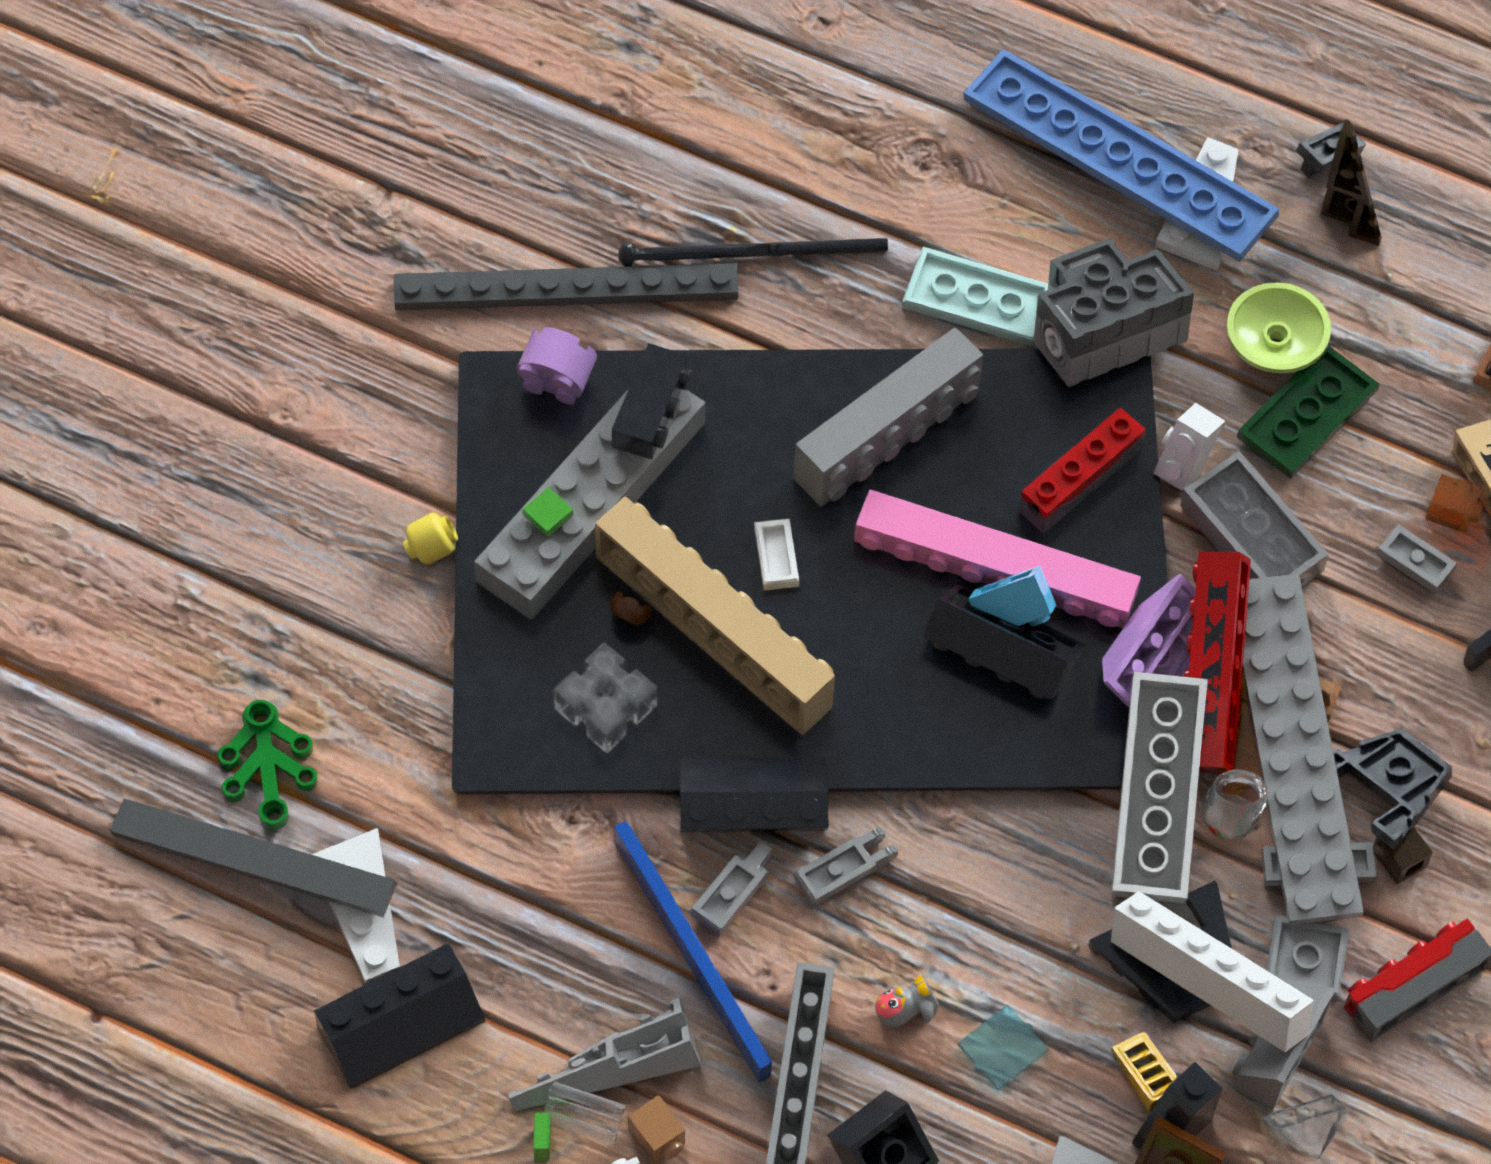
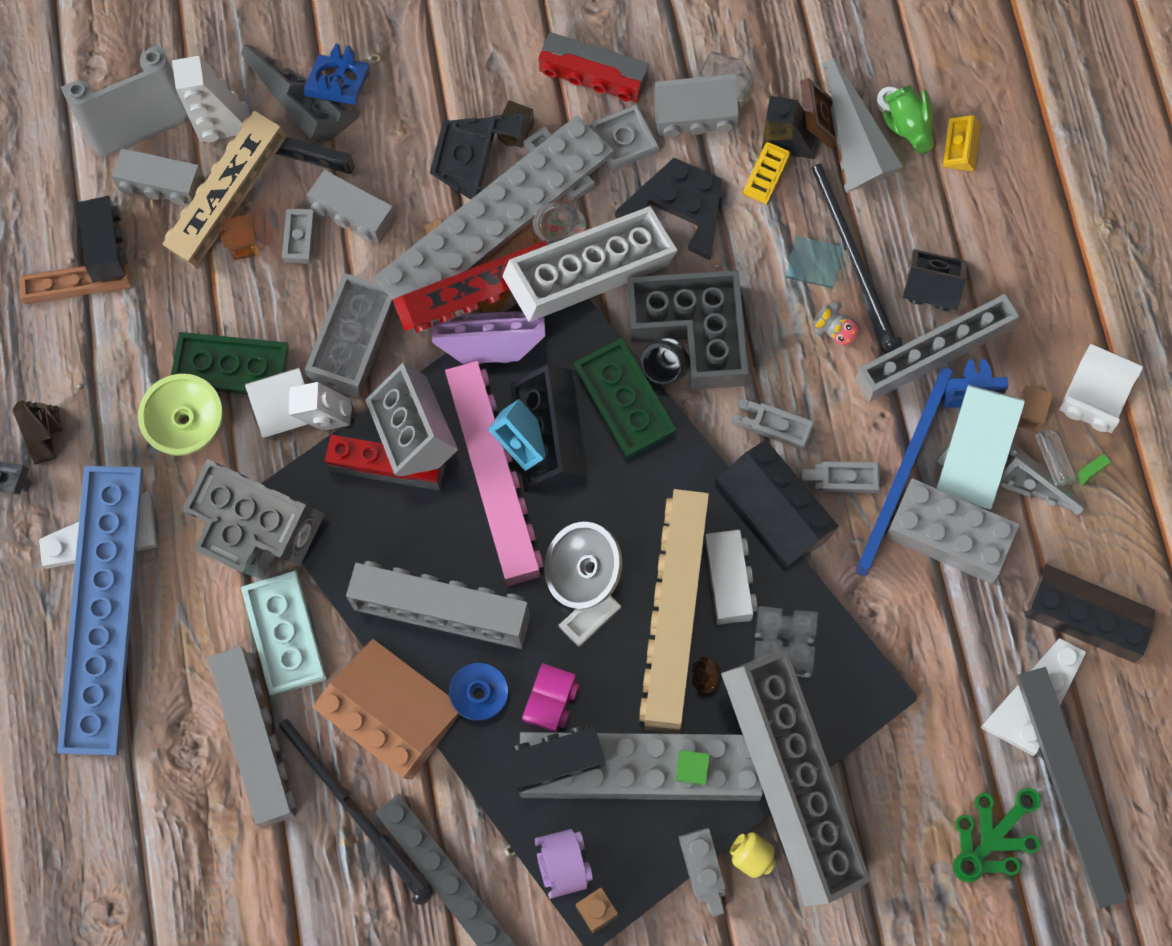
camera: 120 degrees left, 10 degrees up
(452, 487) = (704, 869): none -> light grey hinge
(466, 595) = (796, 778): none -> light grey brick
(491, 370) = (596, 910): none -> medium nougat brick
(590, 944) = (952, 531): none -> light grey brick
(654, 1025) = (980, 446): none -> light aqua tile
(712, 696) = (730, 577): none -> white brick
(719, 1075) = (956, 388): none -> blue piece
(721, 461) = (550, 698): none -> dark pink brick
(782, 391) = (478, 678): none -> blue dish
(823, 324) = (388, 709): none -> nougat slope
(828, 567) = (570, 563): none -> light grey dish
(842, 1047) = (869, 297): none -> black bar
(892, 207) = (251, 737): none -> light grey brick
(983, 734) = (624, 398): none -> dark green plate
(992, 796) = (665, 361): none -> black helmet
(1017, 877) = (702, 310): none -> dark grey brick
(1101, 504) = (410, 423): none -> light grey slope
(1212, 971) = (693, 155): white brick -> none
(1242, 421) = (271, 402): none -> white tile
(1414, 626) = (351, 207): none -> light grey brick

